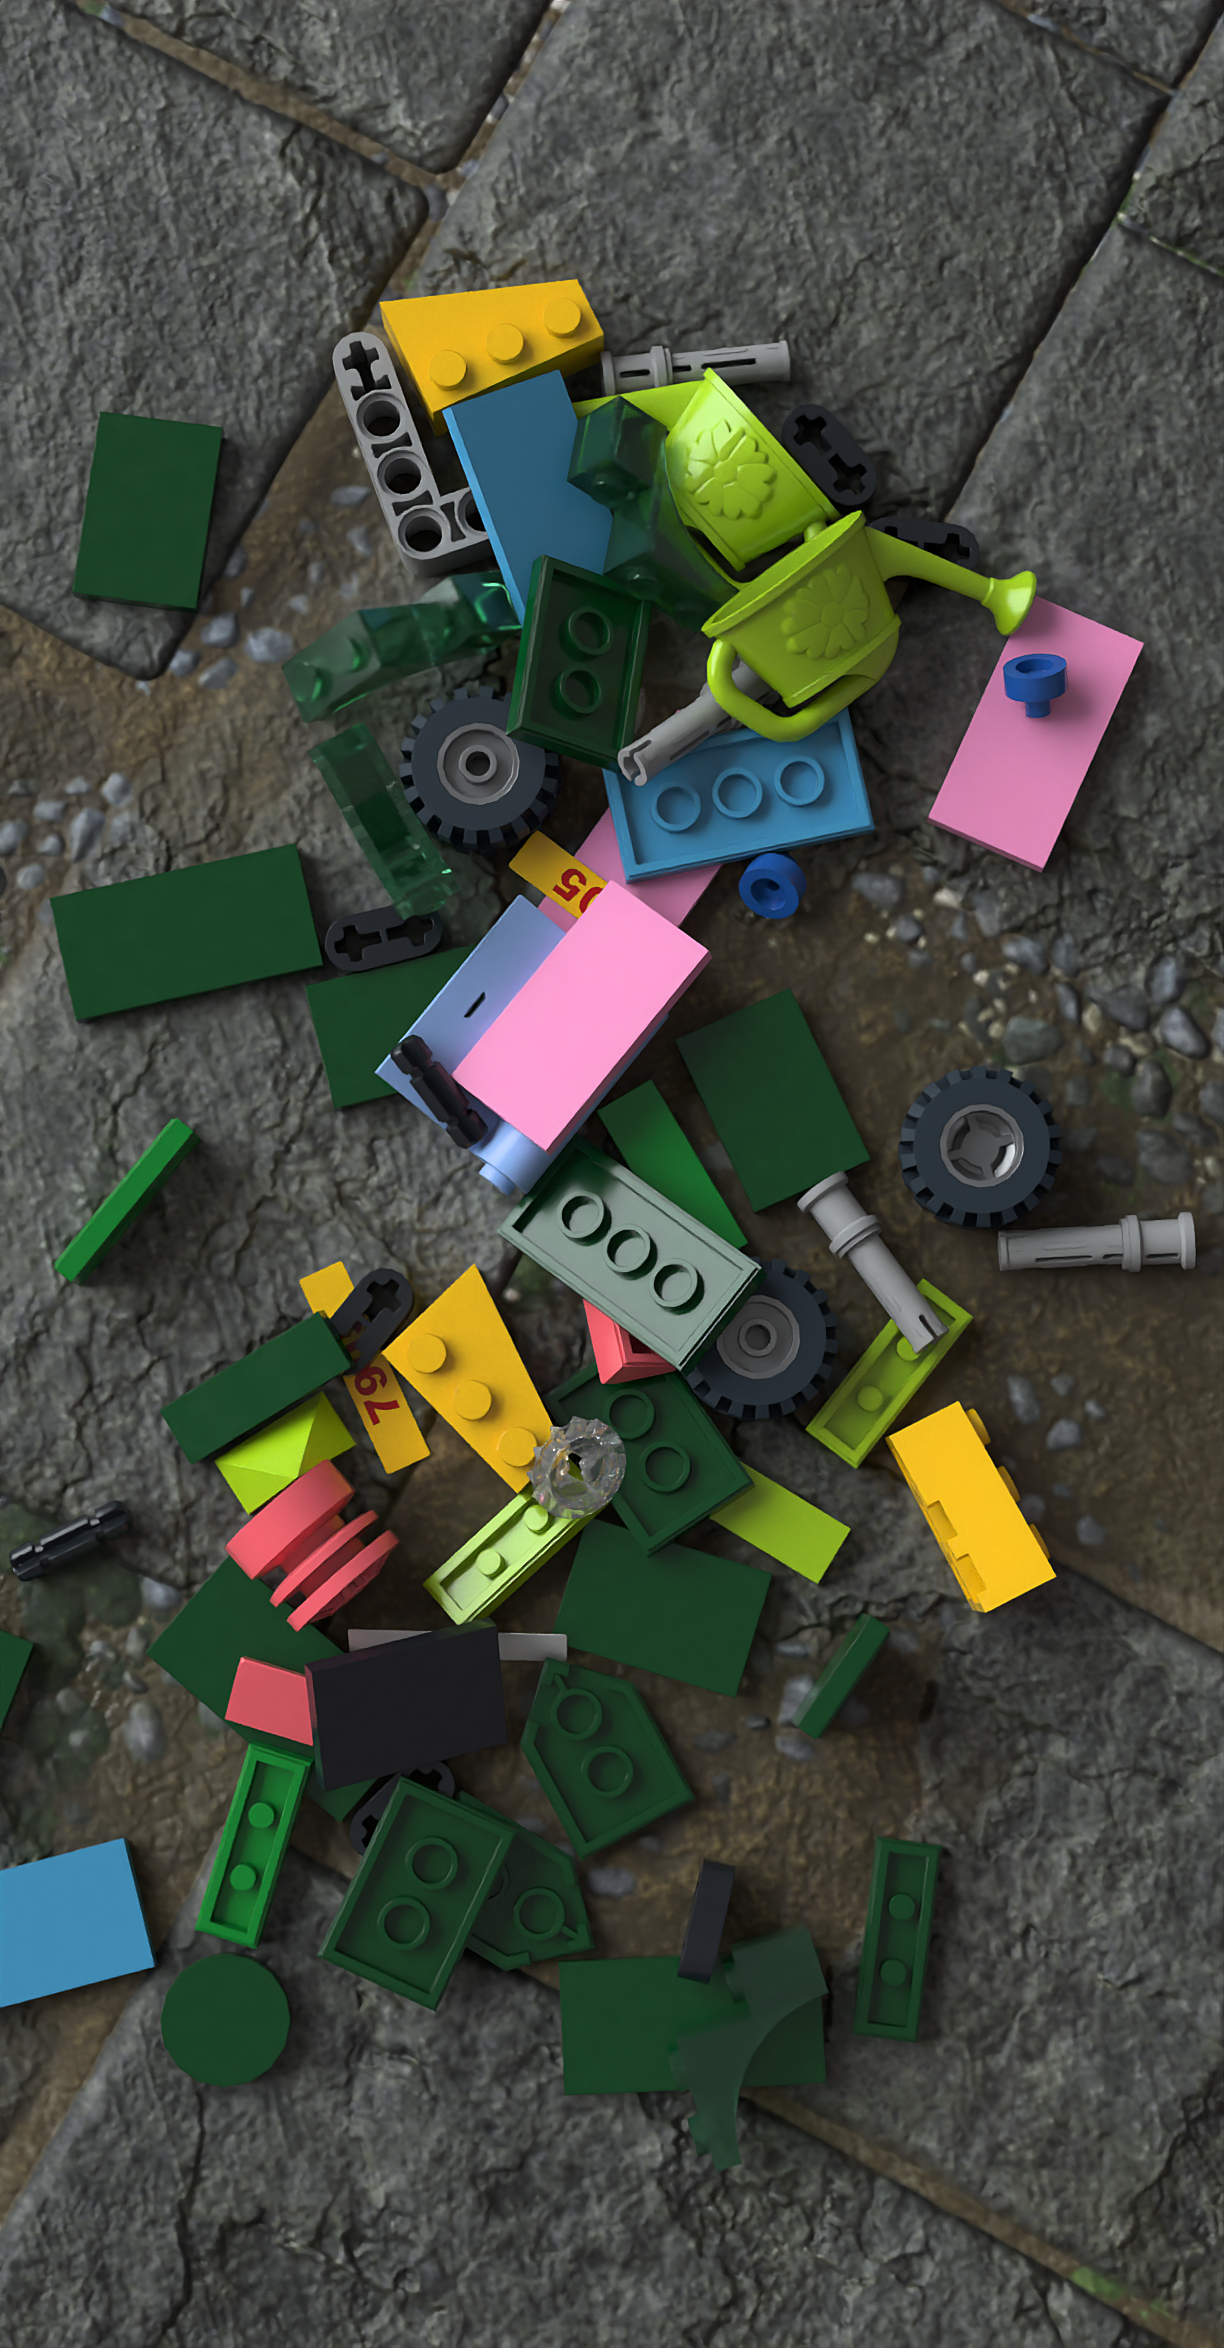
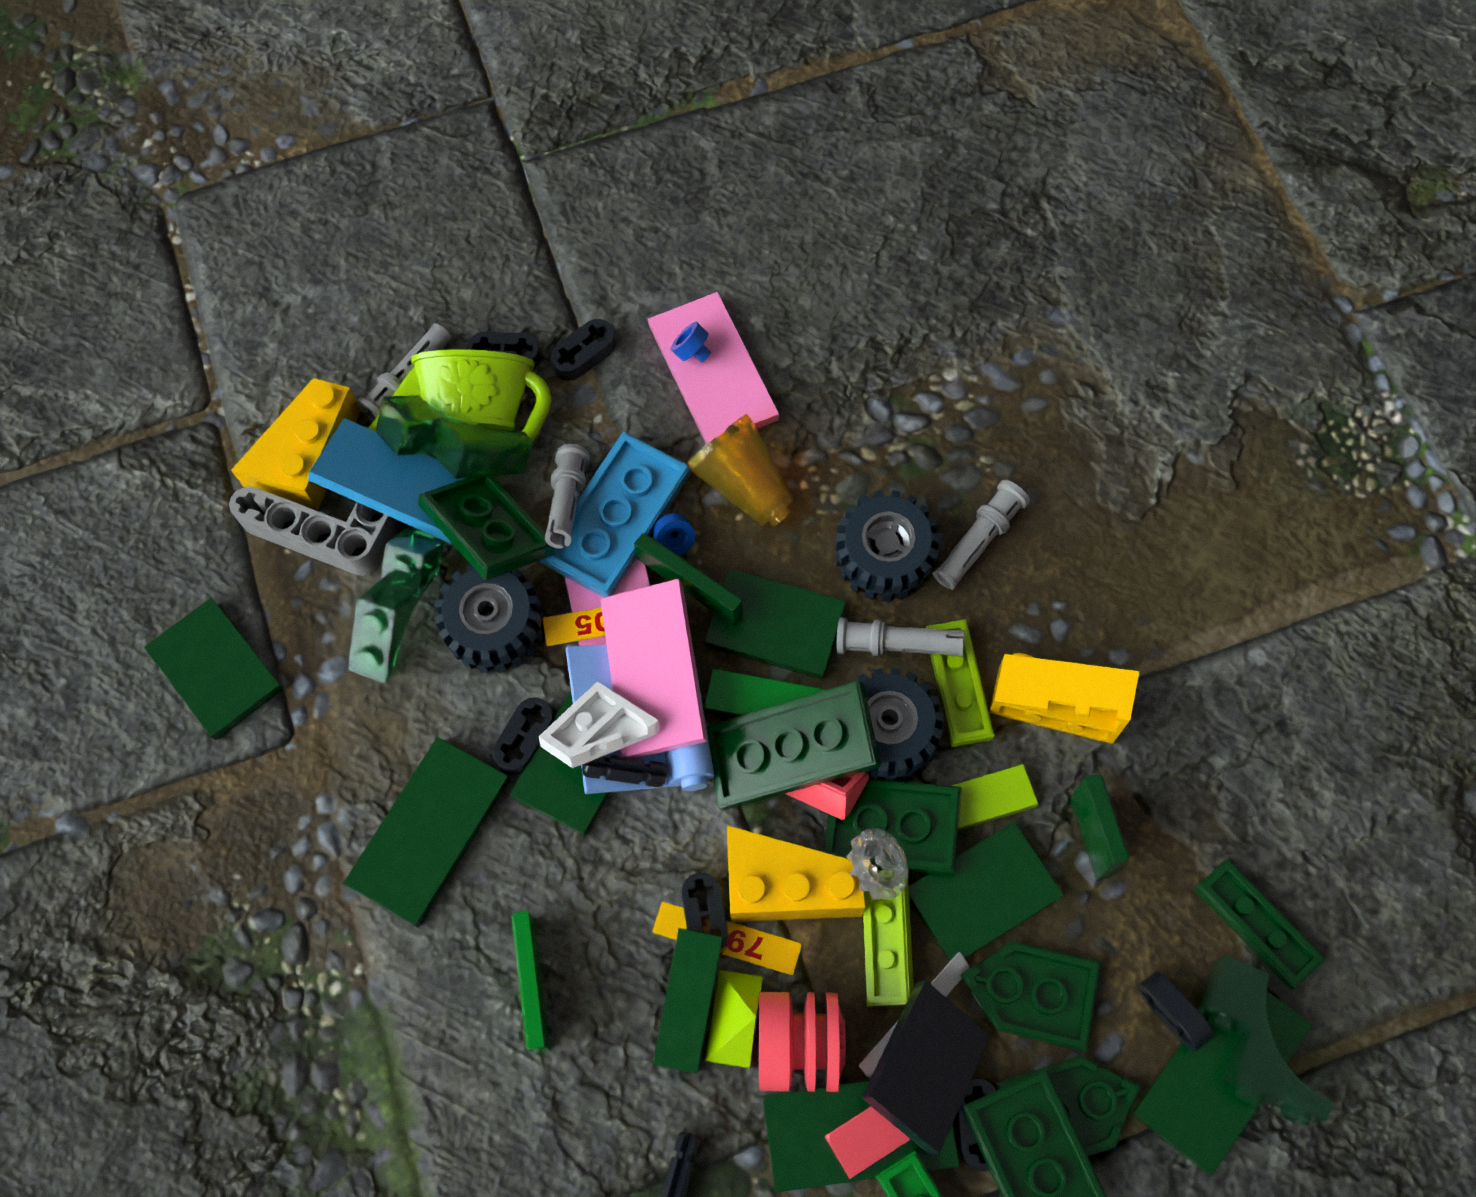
camera: 45 degrees left, 15 degrees down
(383, 822) = (470, 685): clear green arch -> none
(453, 1020) = (597, 726): none -> white wing
(728, 956) = (694, 581): none -> dark green tile
(830, 617) = (574, 402): lime piece -> none
(920, 899) = (744, 472): none -> clear yellow cone

